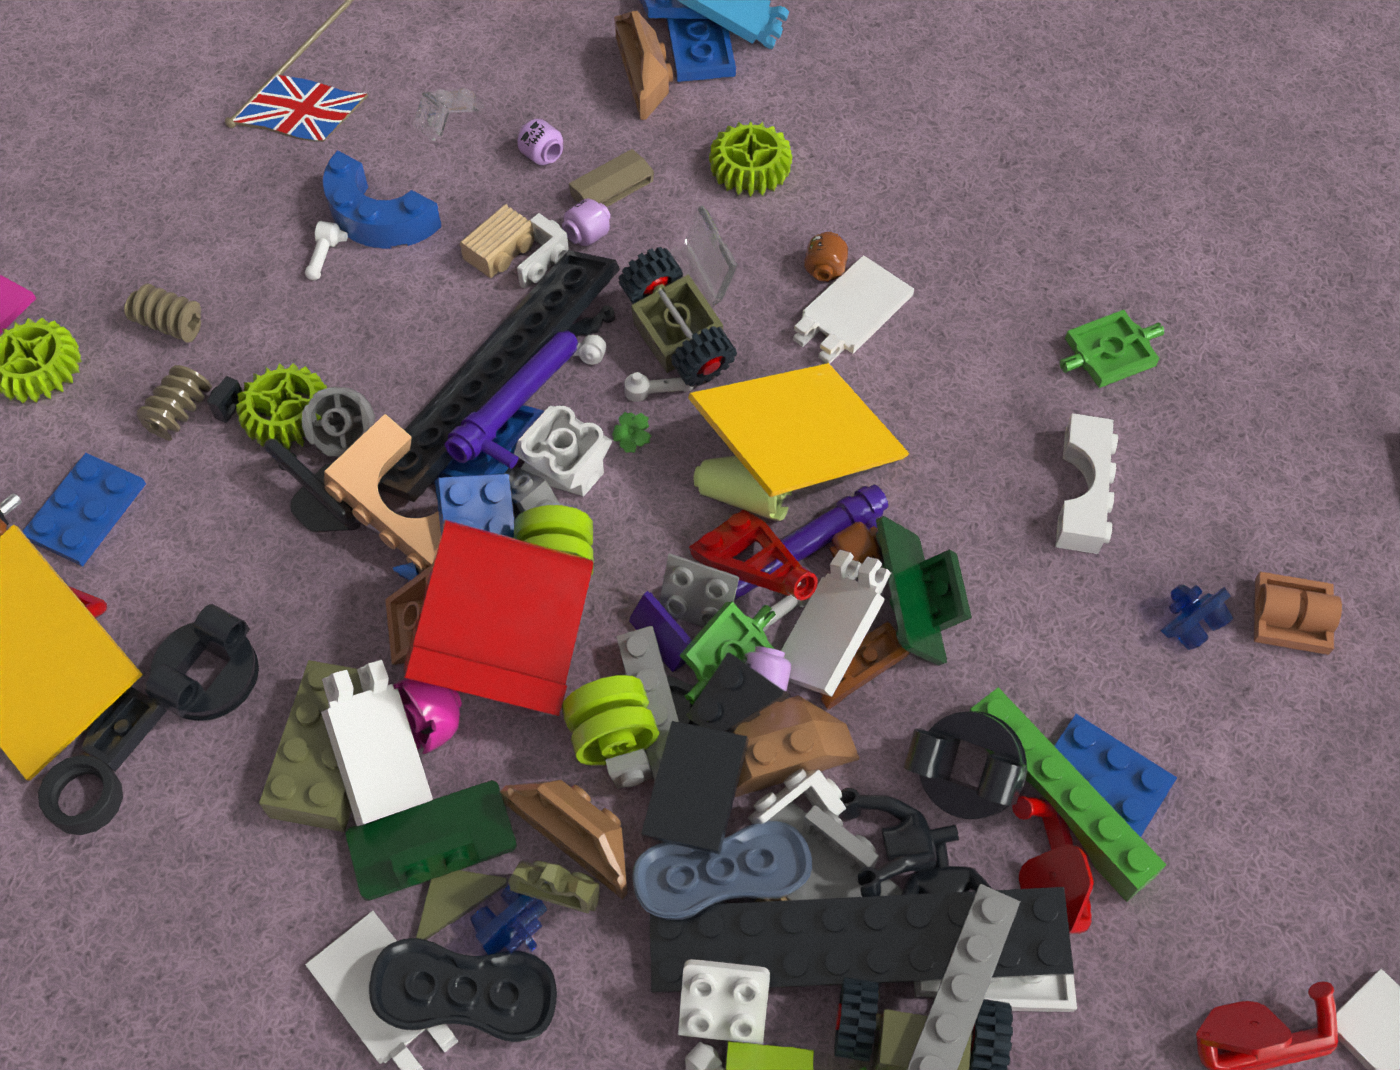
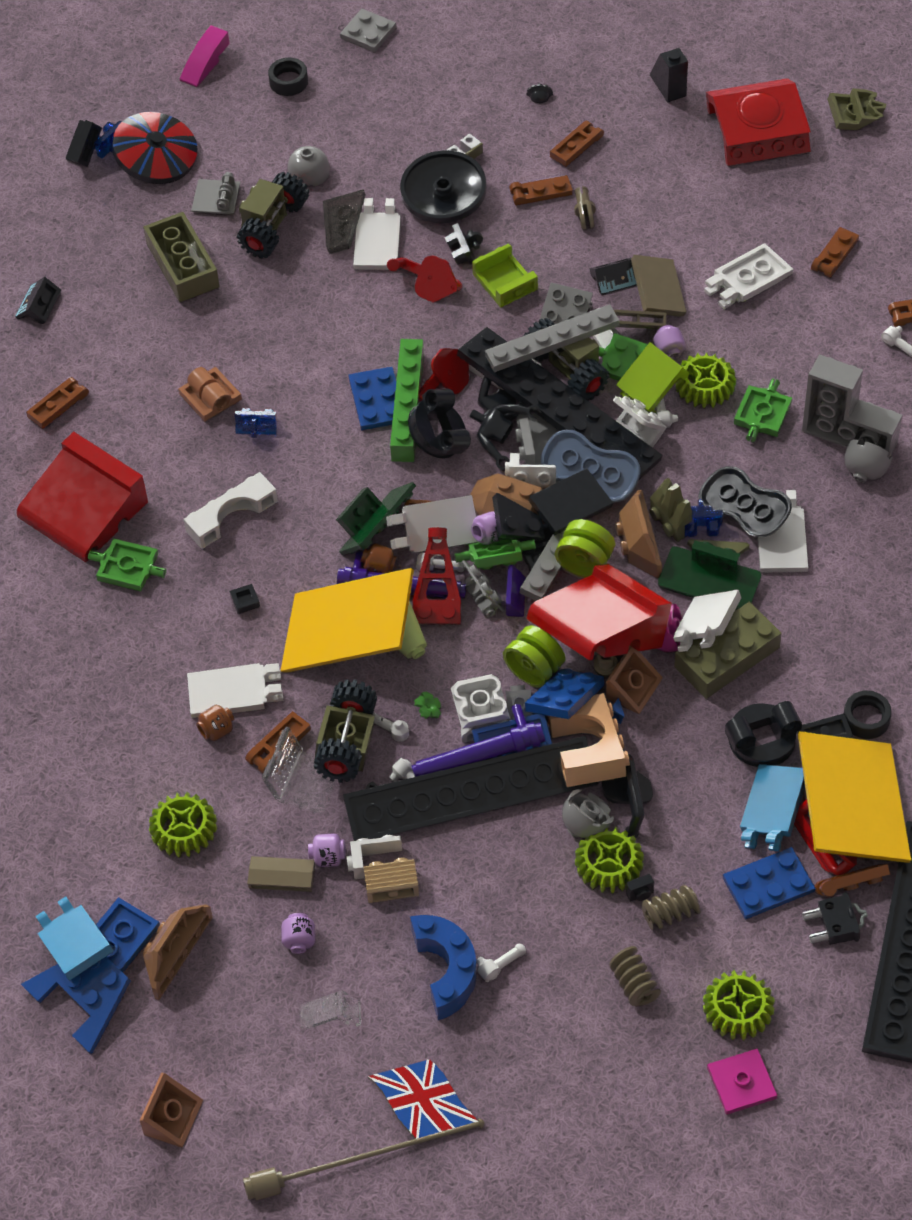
camera: 135 degrees left, 5 degrees down
(131, 589) = (772, 805): none -> dark azure tile
(747, 292) = (267, 744): none -> dark orange plate
(950, 401) = (244, 599): none -> black plate
(1248, 378) = (83, 497): none -> red panel

